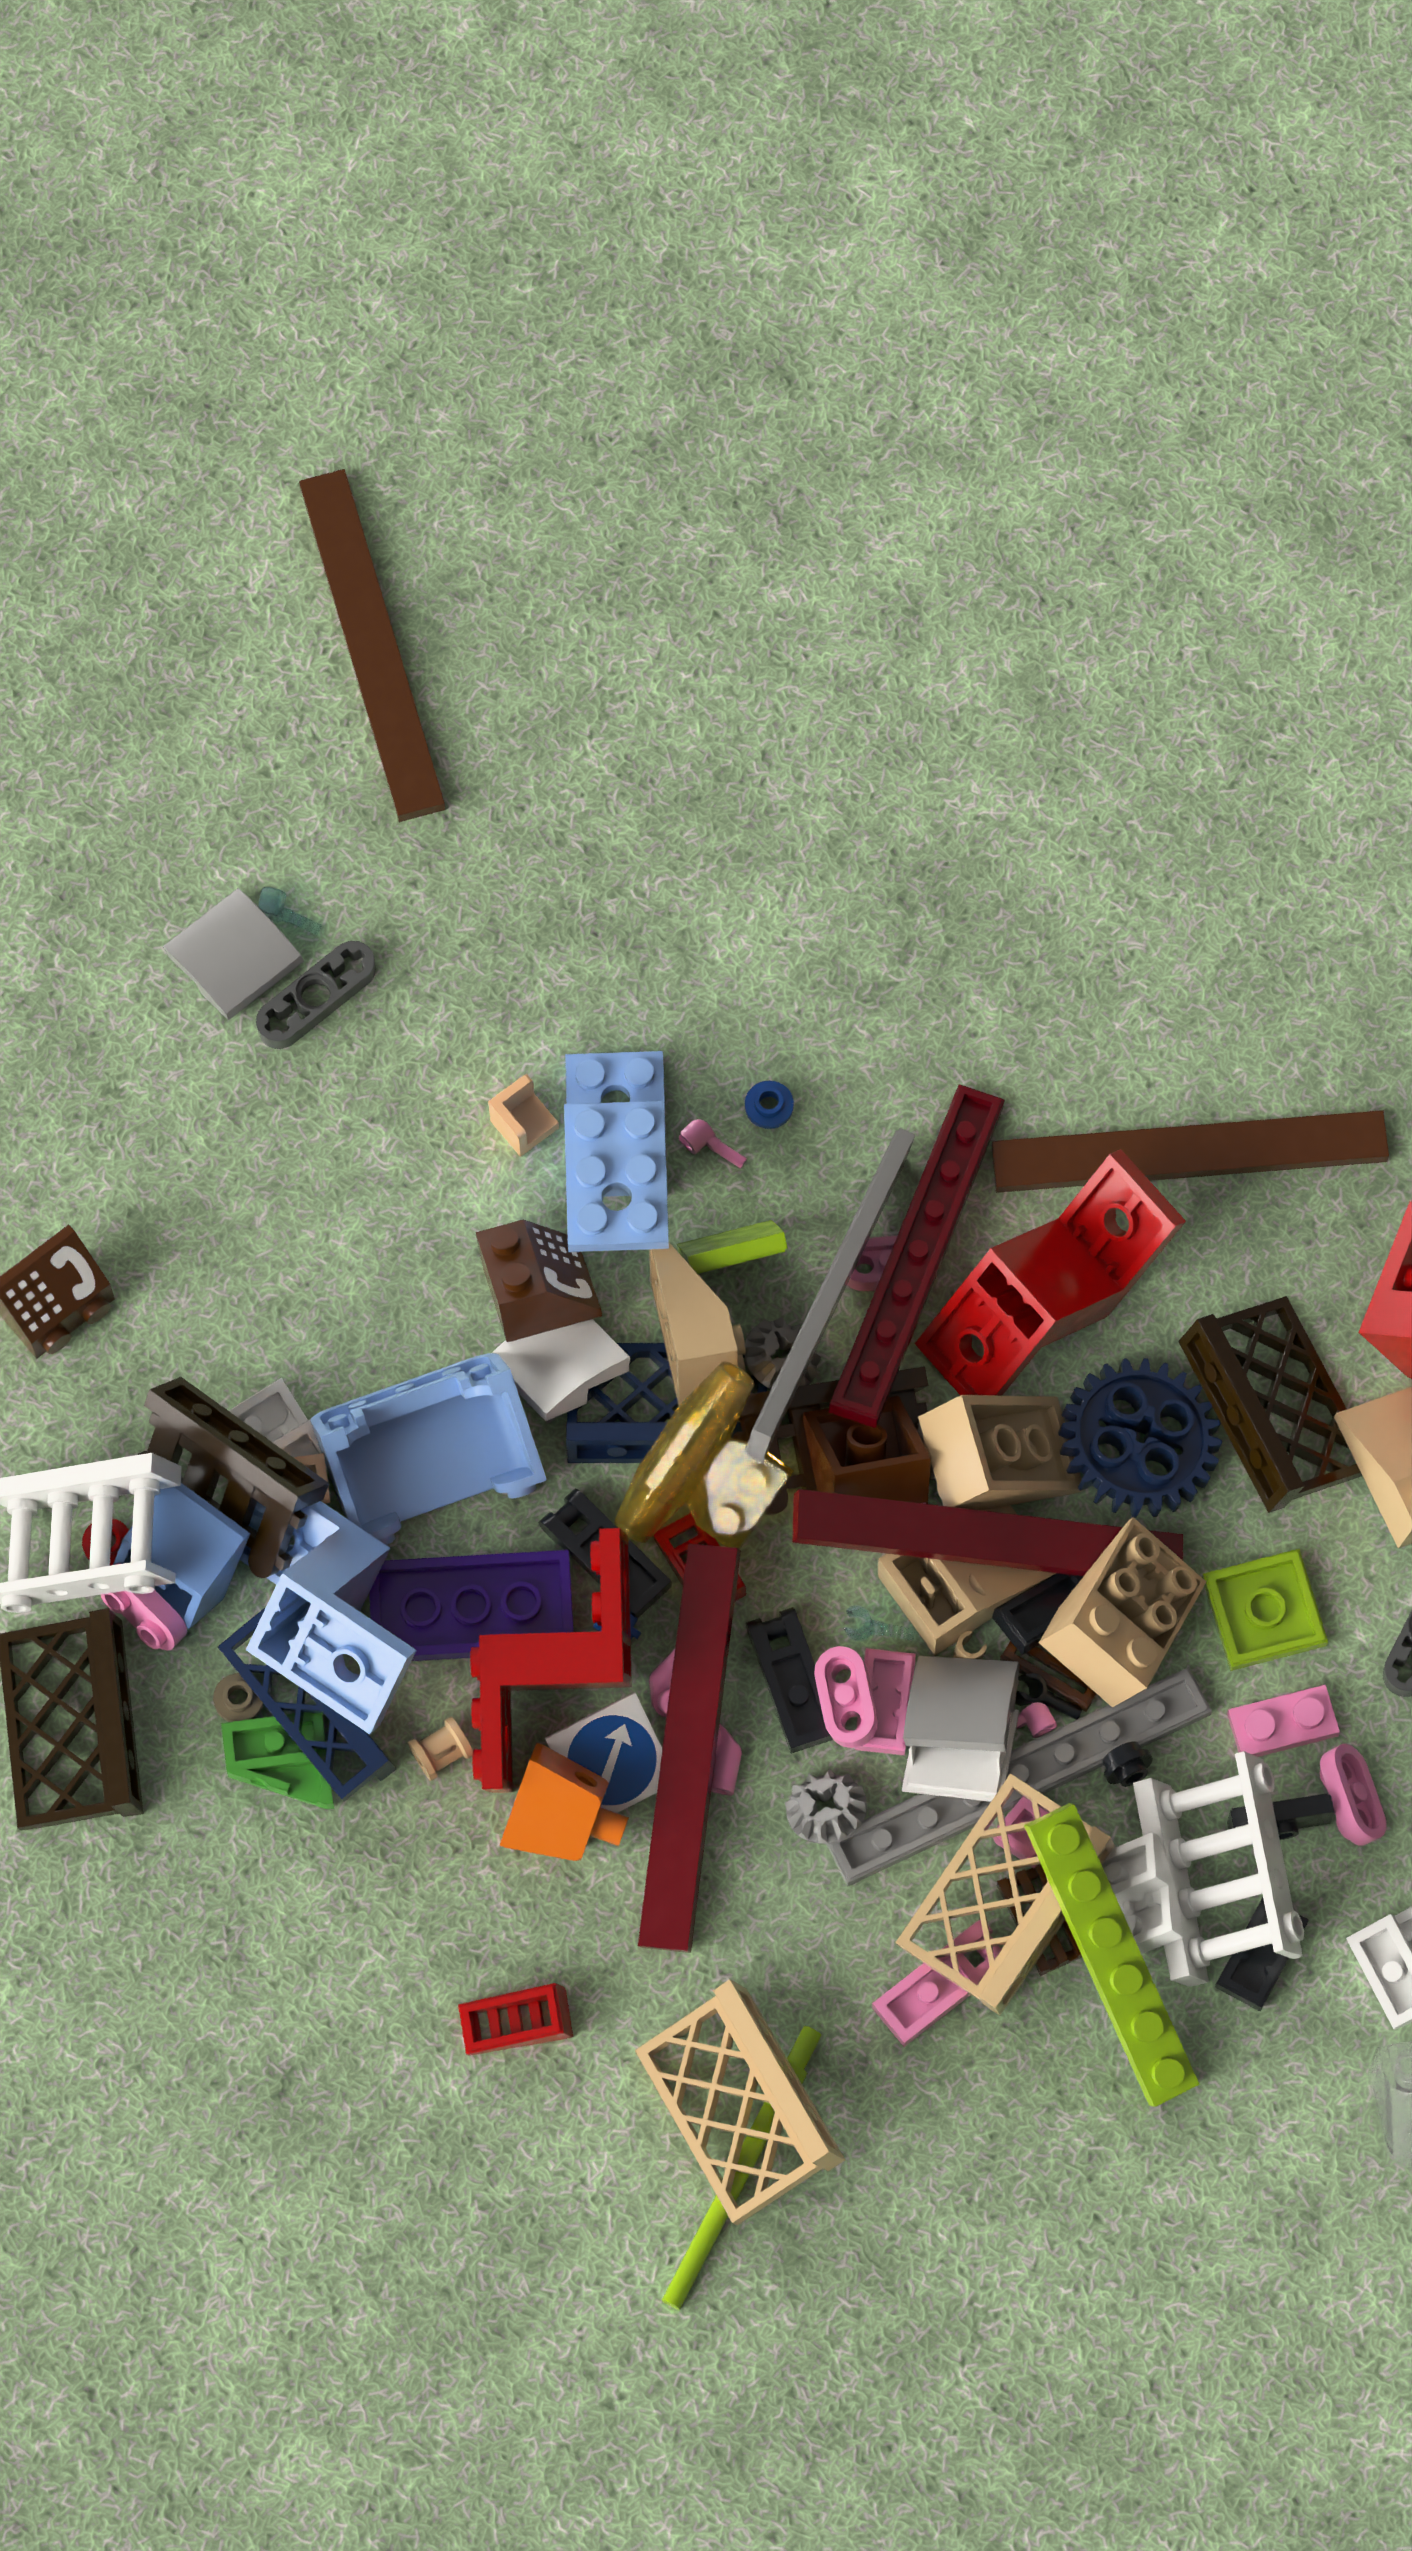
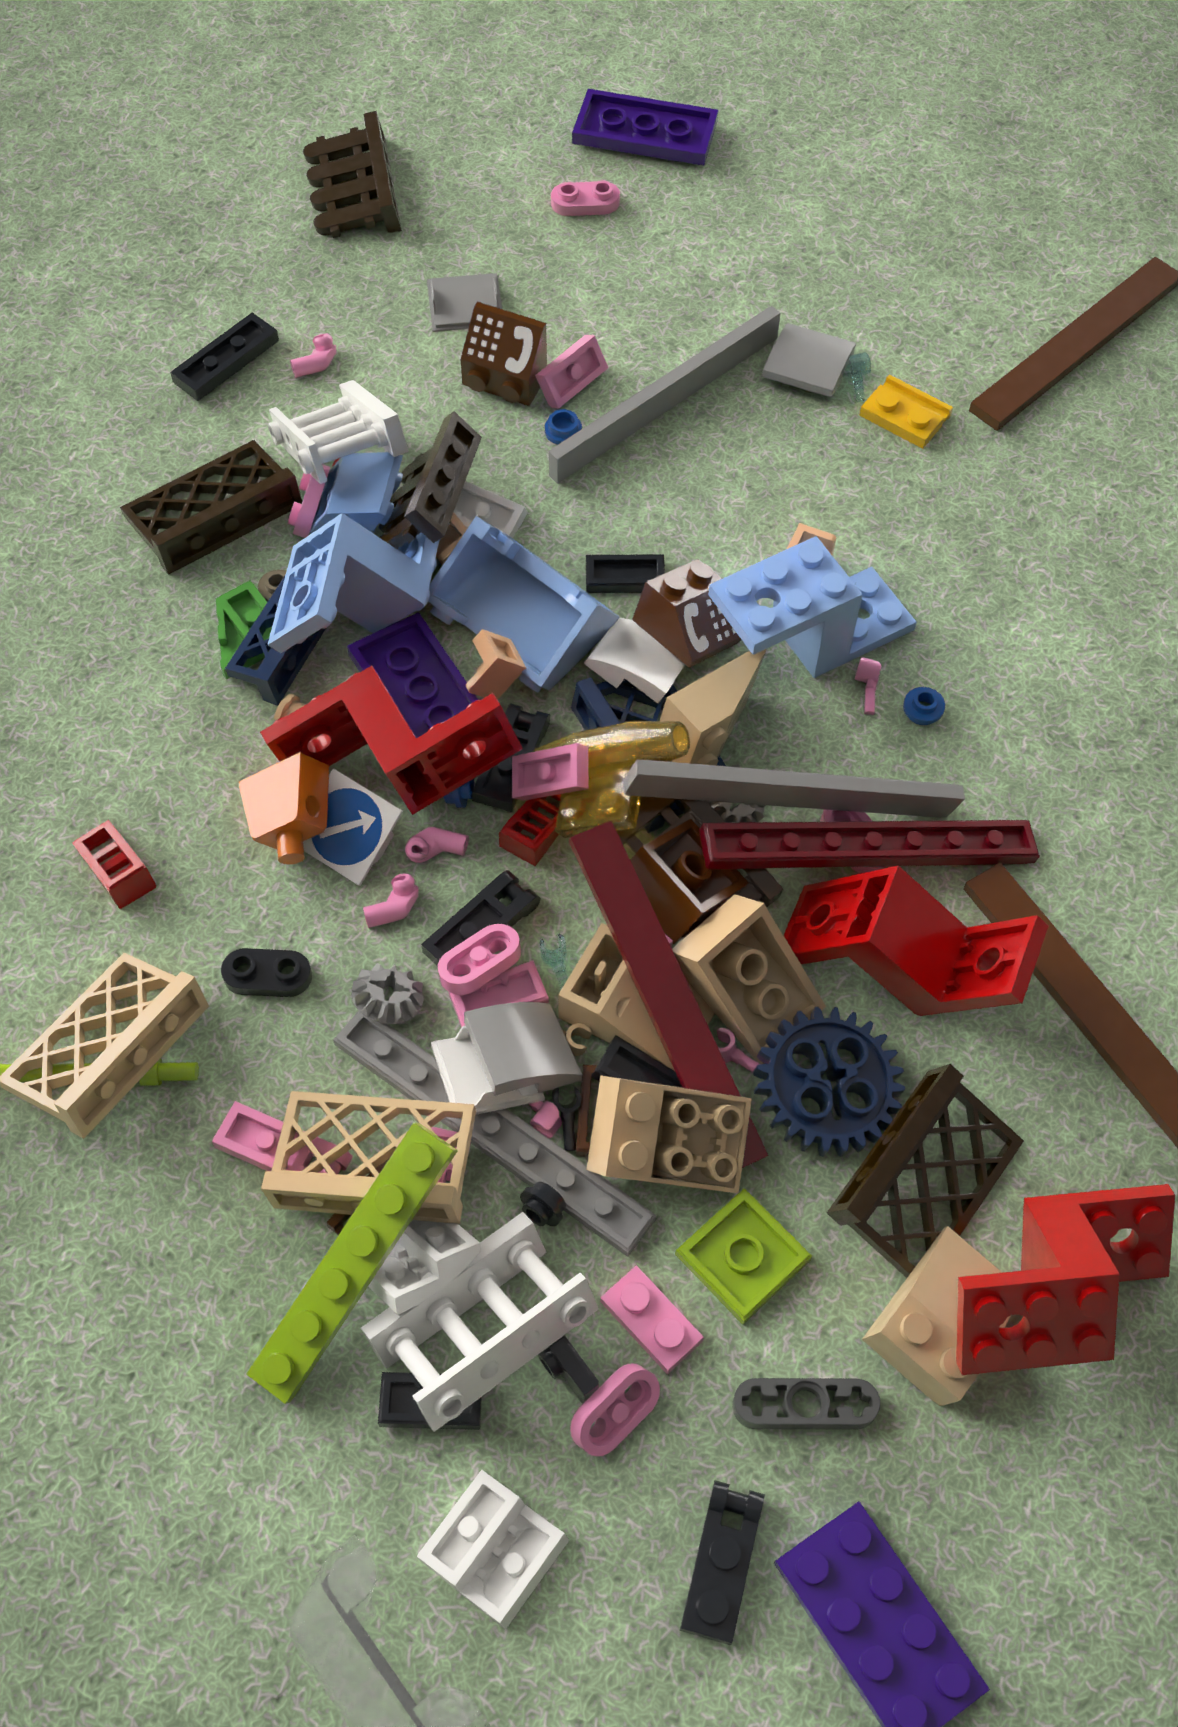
camera: 60 degrees right, 10 degrees down
(104, 1226) = (571, 371): none -> bright pink plate
(179, 1279) = (562, 425): none -> blue plate
(198, 1140) = (663, 394): none -> light grey tile
(281, 1008) = (841, 413): dark grey beam -> none
(365, 891) = (906, 411): none -> yellow plate
(424, 1316) = (622, 572): none -> black tile
(490, 1513) = (499, 666): none -> light nougat panel
(673, 1522) = (550, 772): none -> bright pink plate
(689, 1748) = (380, 871): dark red tile -> none
(733, 1246) = (793, 719): lime tile -> none
(734, 1916) = (264, 973): none -> black plate
(1066, 1506) = (731, 1053): none -> bright pink hand

